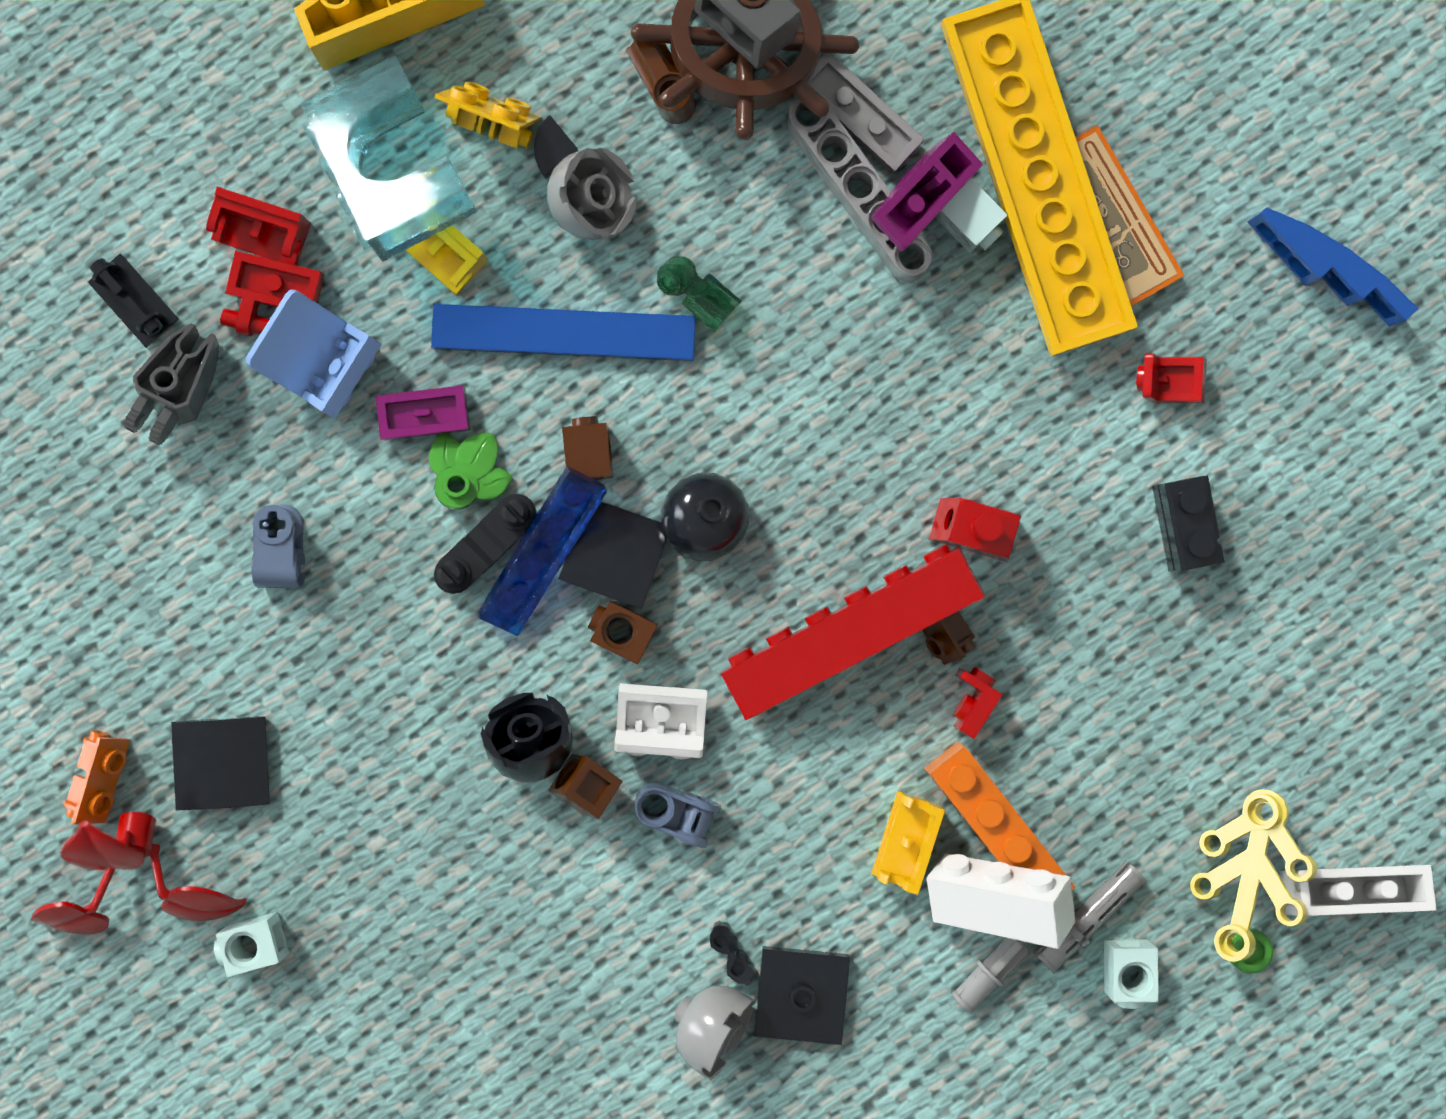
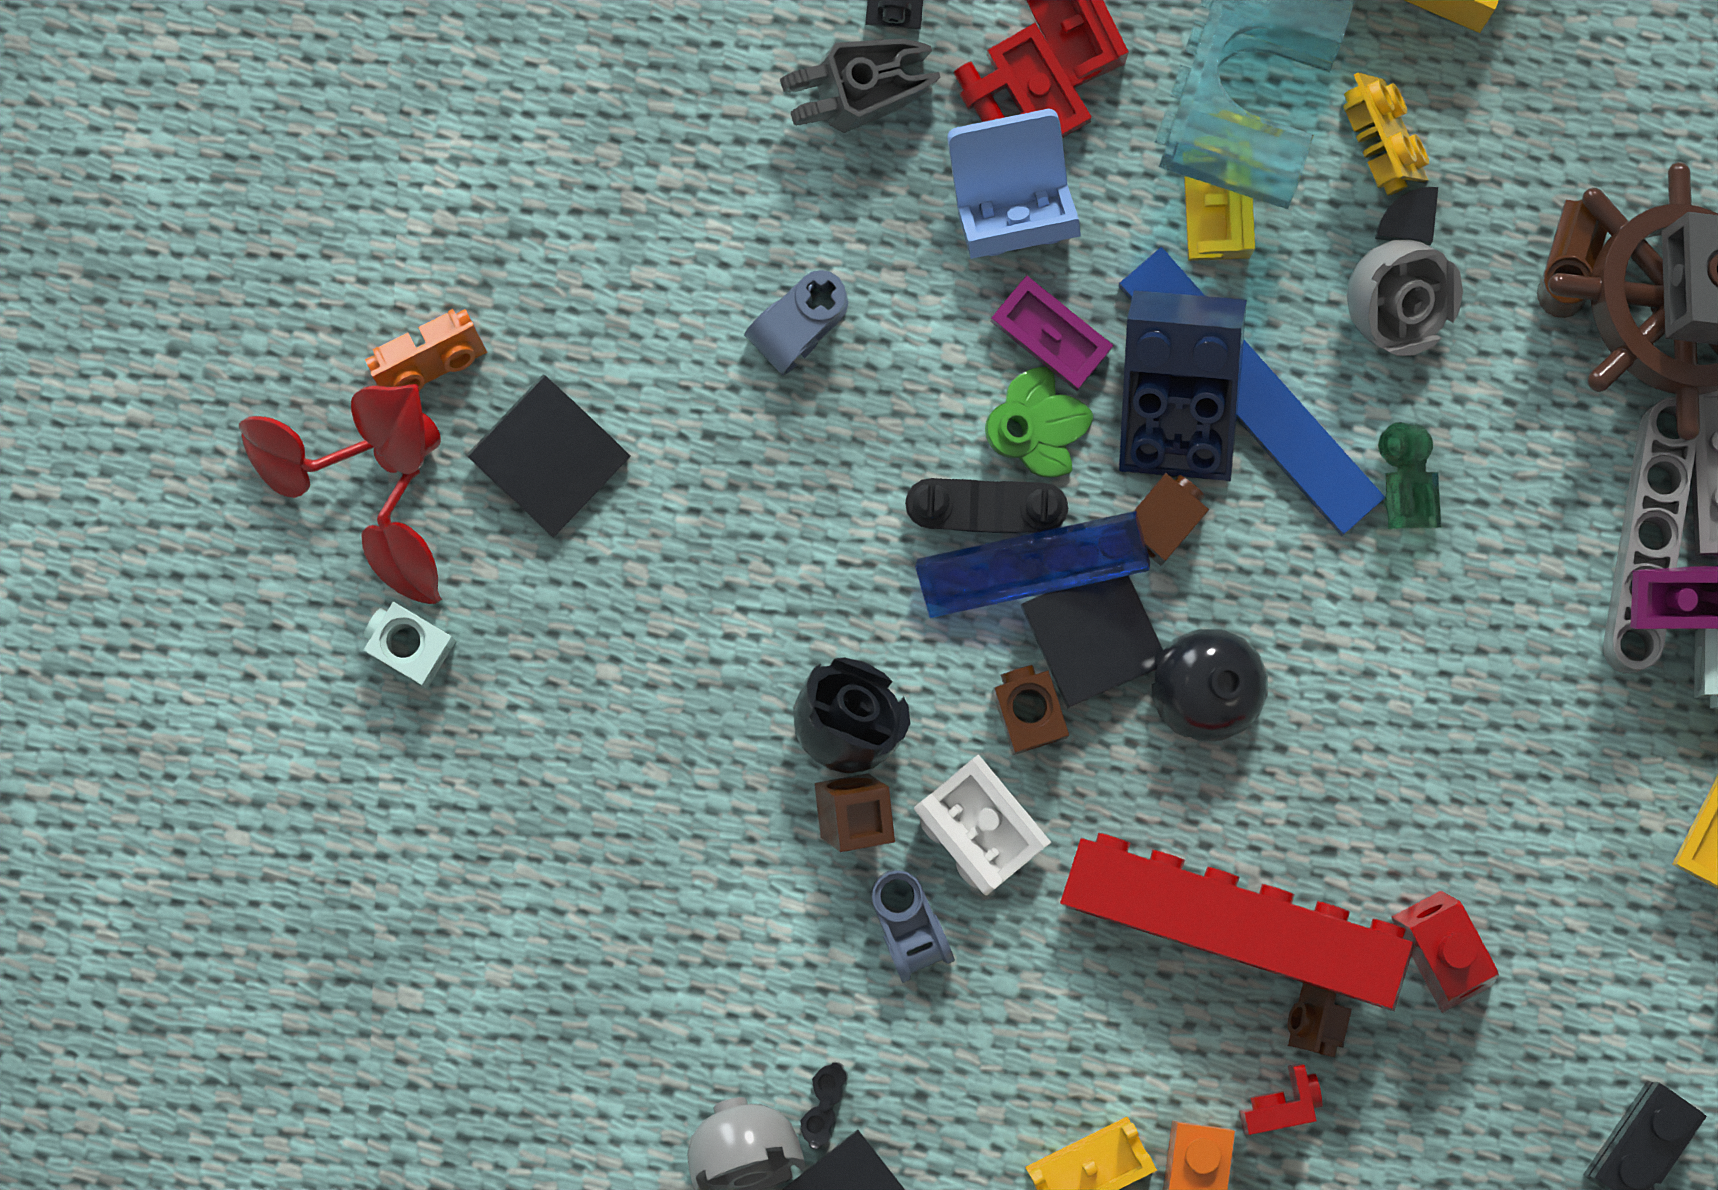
camera: 45 degrees right, 5 degrees down
(520, 368) = (1181, 385): none -> dark blue slope

